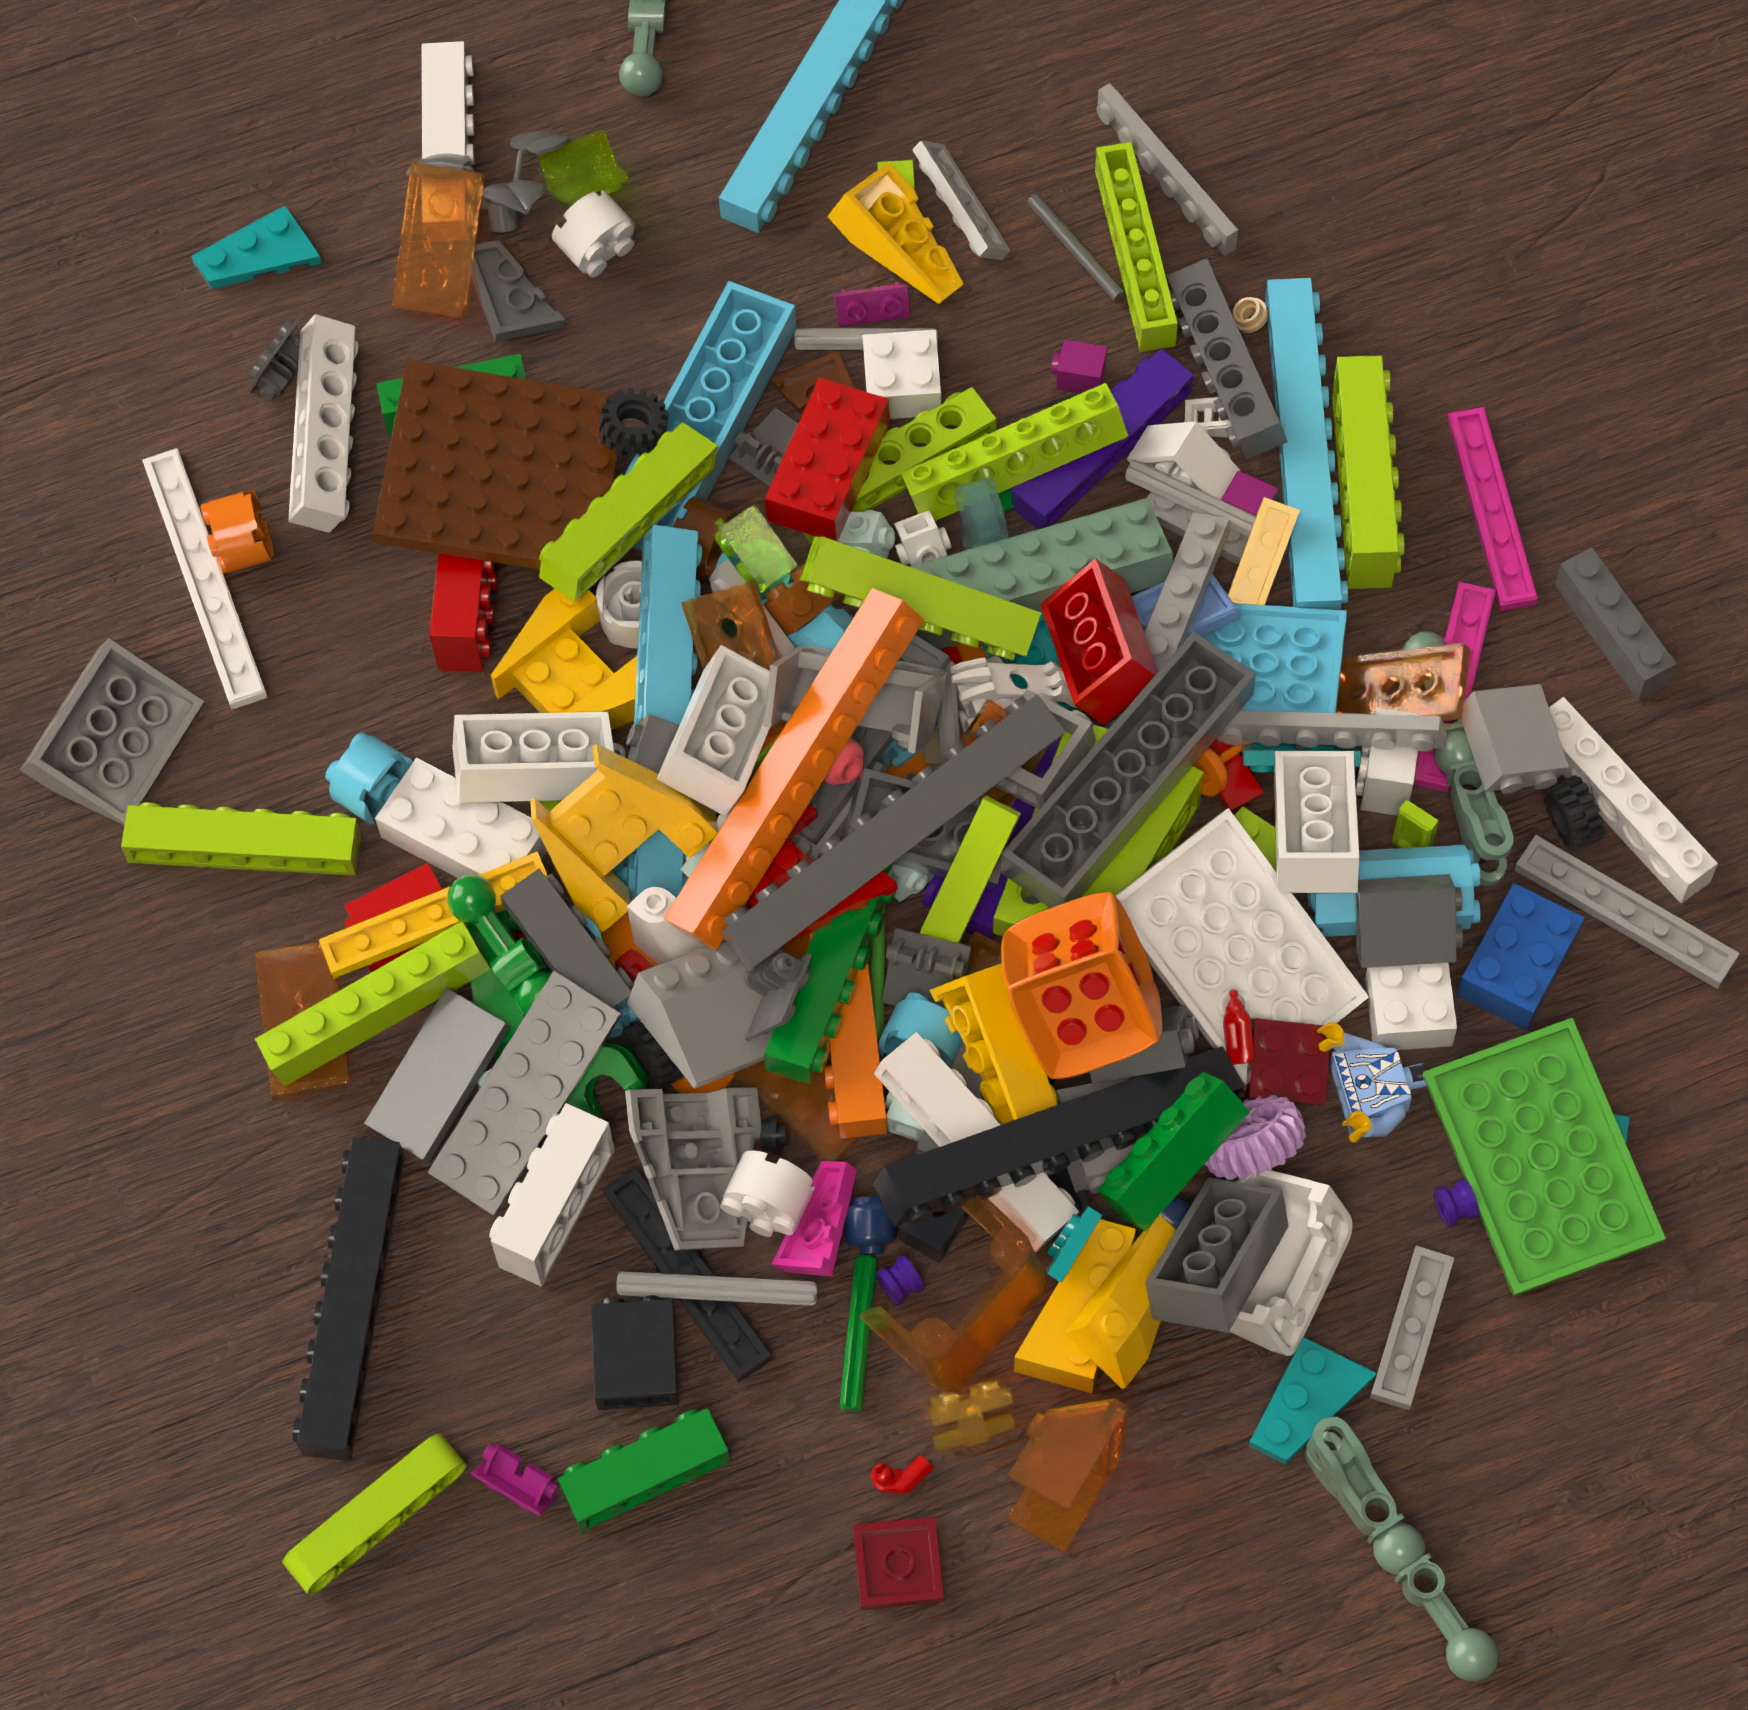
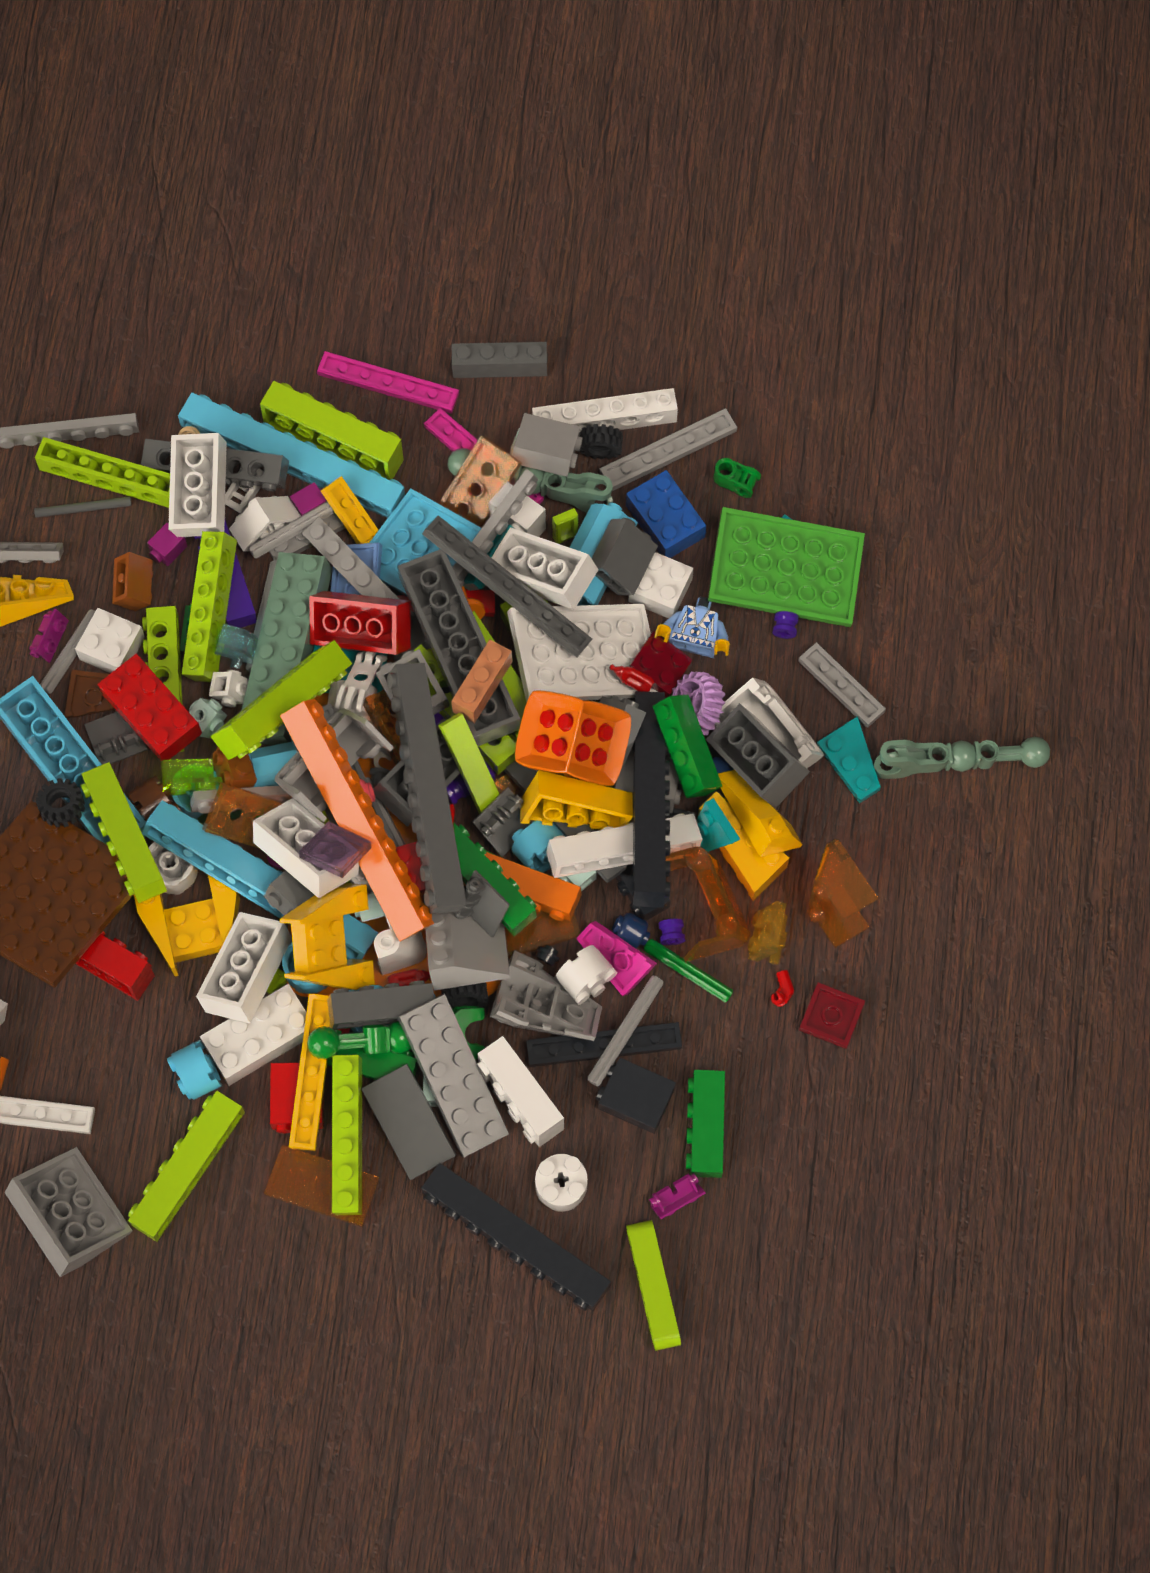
camera: 65 degrees left, 5 degrees up
(451, 1294) = (548, 1189): none -> white brick
(728, 757) = (335, 849): none -> tile
(1001, 354) = (132, 581): none -> dark orange brick
(1082, 816) = (482, 681): none -> nougat brick
(1171, 345) = (197, 484): none -> white brick
(1255, 789) = (507, 586): none -> dark grey tile
(1643, 1028) = (737, 478): none -> green piece

